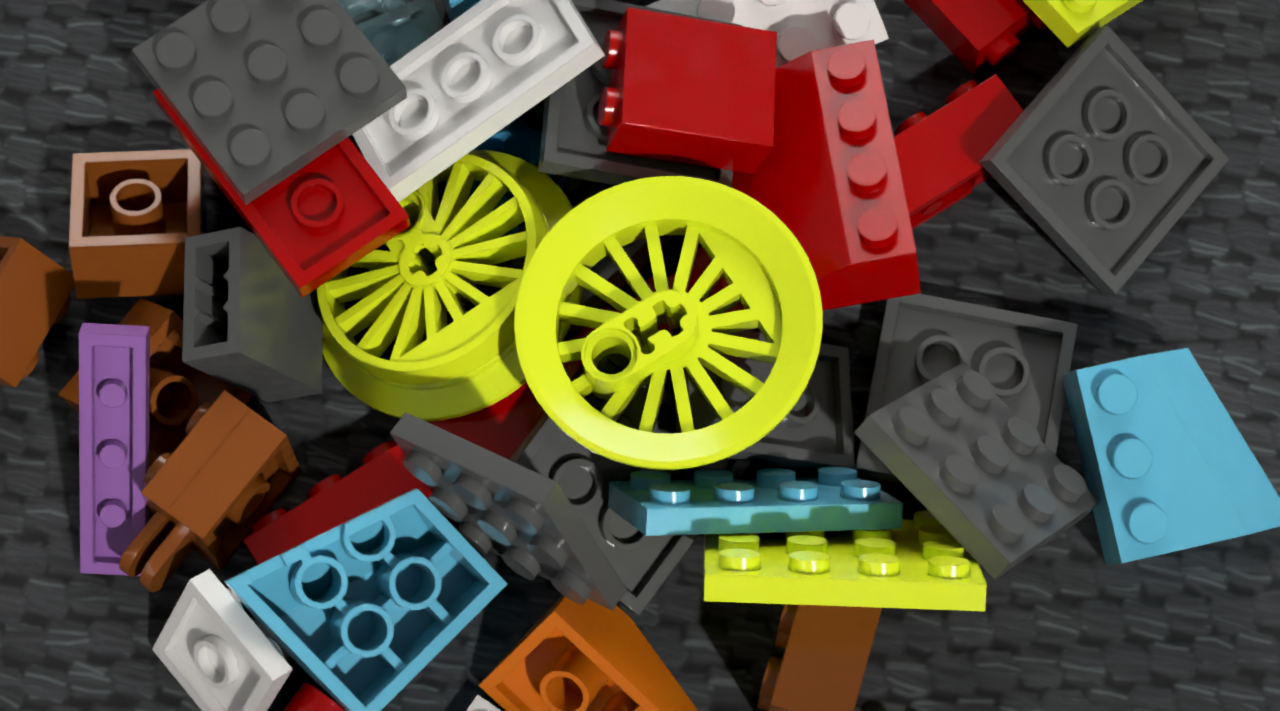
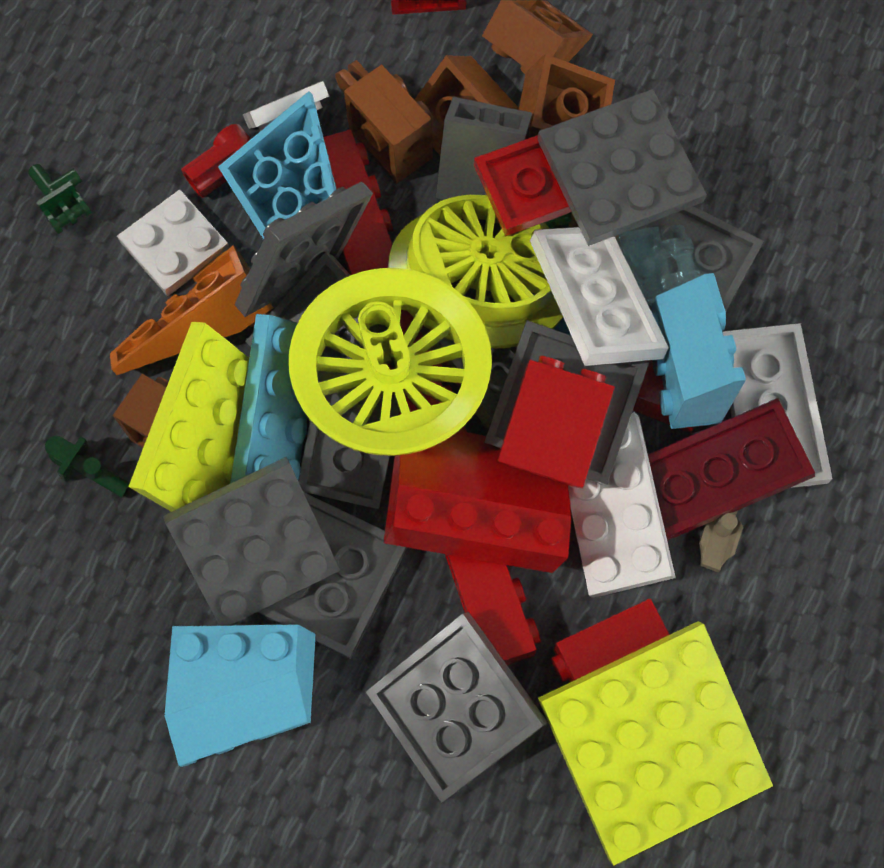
camera: 105 degrees right, 0 degrees up
(112, 441) = (431, 61): medium lavender plate -> none

